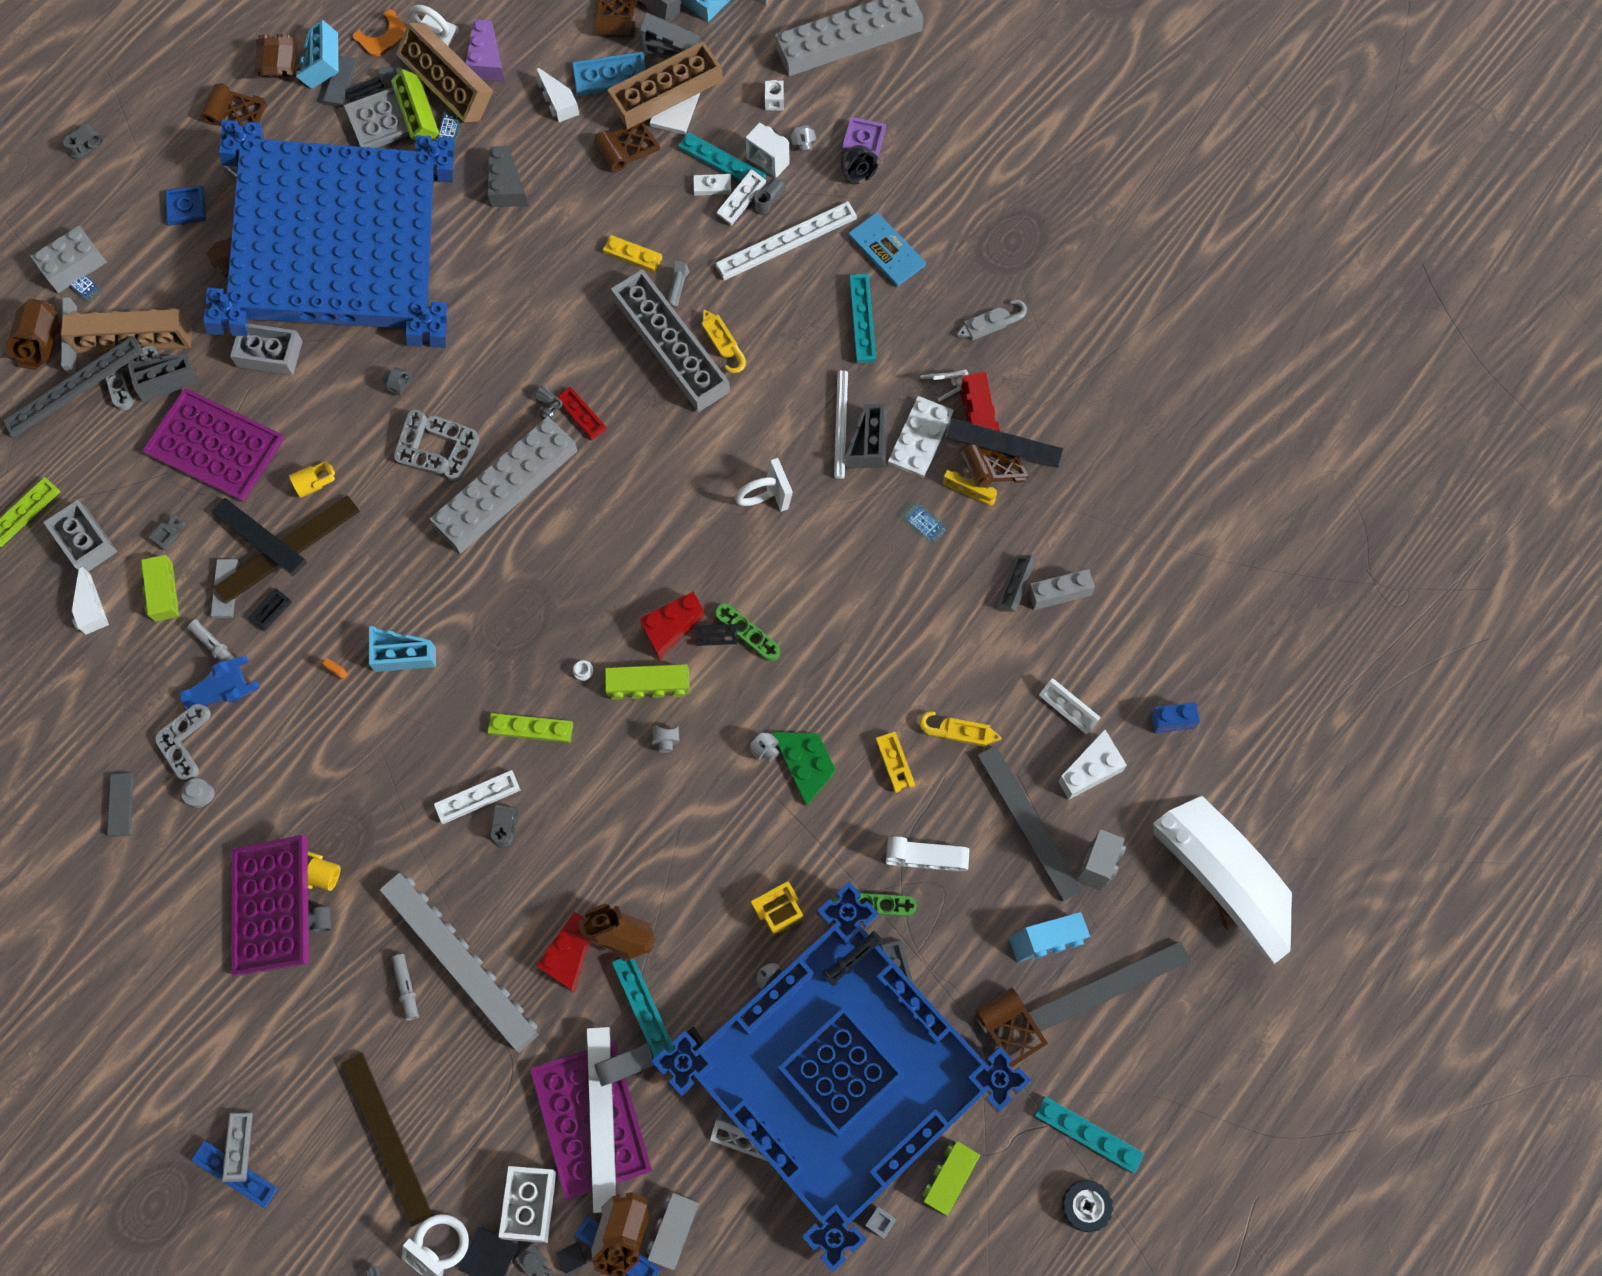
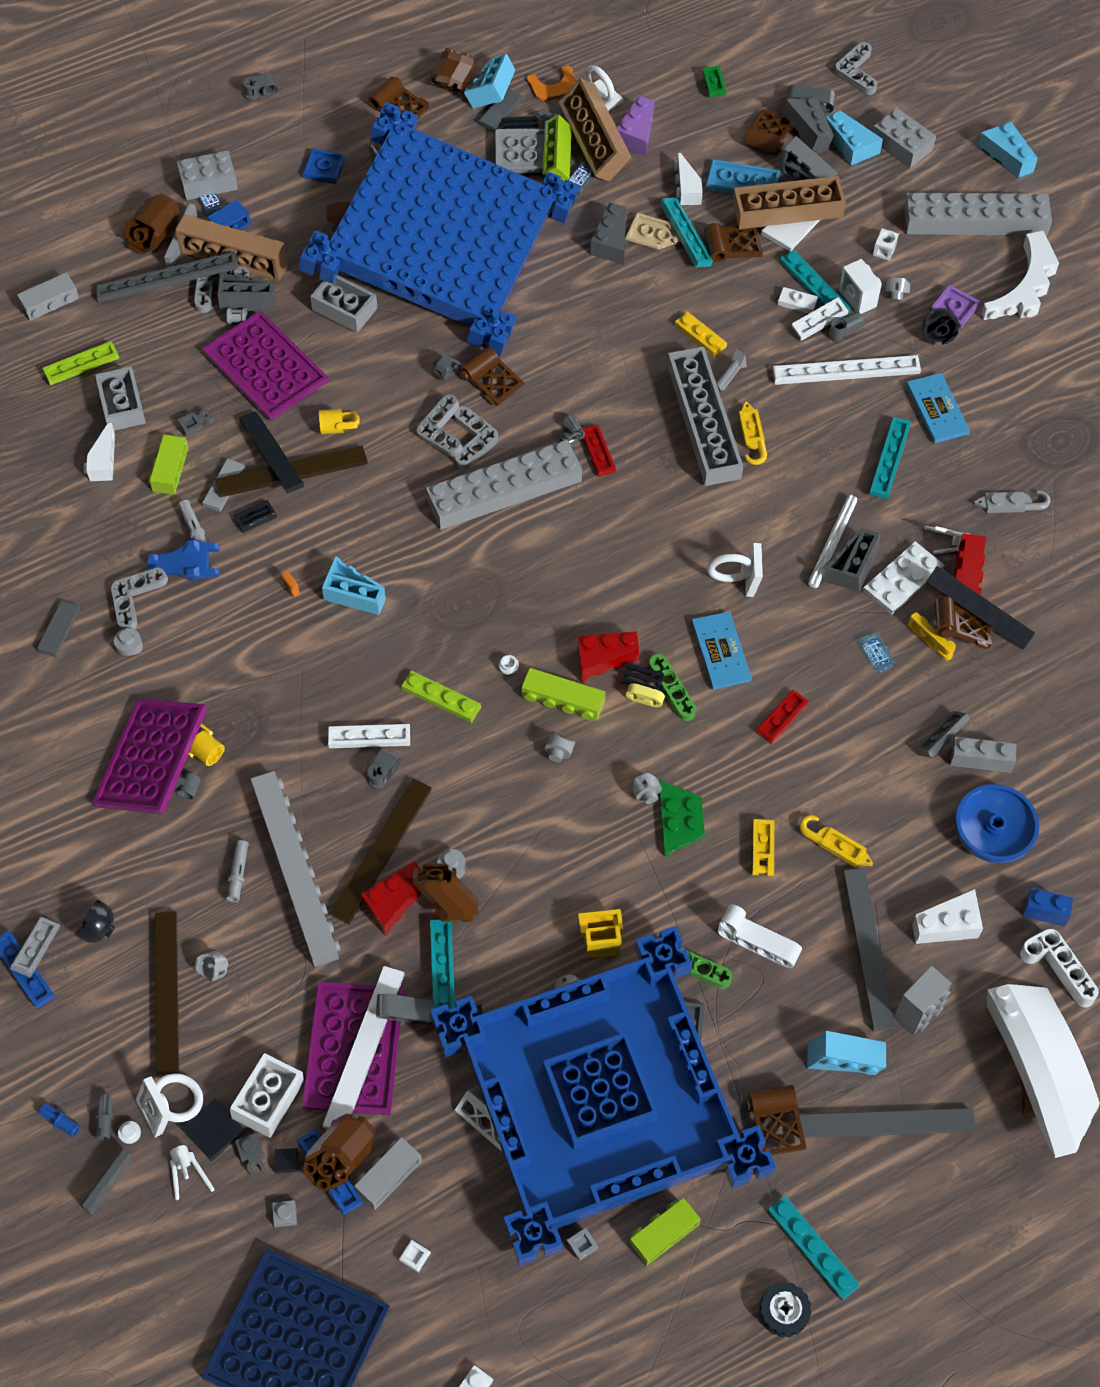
camera: 20 degrees right, 10 degrees down
(112, 297) = (231, 215): none -> blue brick
(162, 401) = (236, 315): none -> light grey bush
(289, 1099) = (96, 923): none -> black cylinder
(420, 1094) = (214, 966): none -> light grey piece
(430, 369) = (480, 366): none -> reddish brown piece
(536, 910) = (381, 851): none -> dark brown tile
(543, 162) = (651, 232): none -> tan tile
(577, 150) = (686, 232): none -> teal plate
(610, 894) = (454, 859): none -> light grey piece
(725, 651) = (645, 695): none -> light yellow beam
(779, 576) = (721, 650): none -> dark azure tile
(844, 964) = (639, 995): black pin -> none
(861, 622) = (782, 716): none -> red tile
(928, 65) = (1024, 298): none -> white arch
(1069, 706) = (949, 860): white plate -> none
(1099, 654) = (996, 823): none -> blue dish
(1210, 774) = (1082, 990): none -> white beam

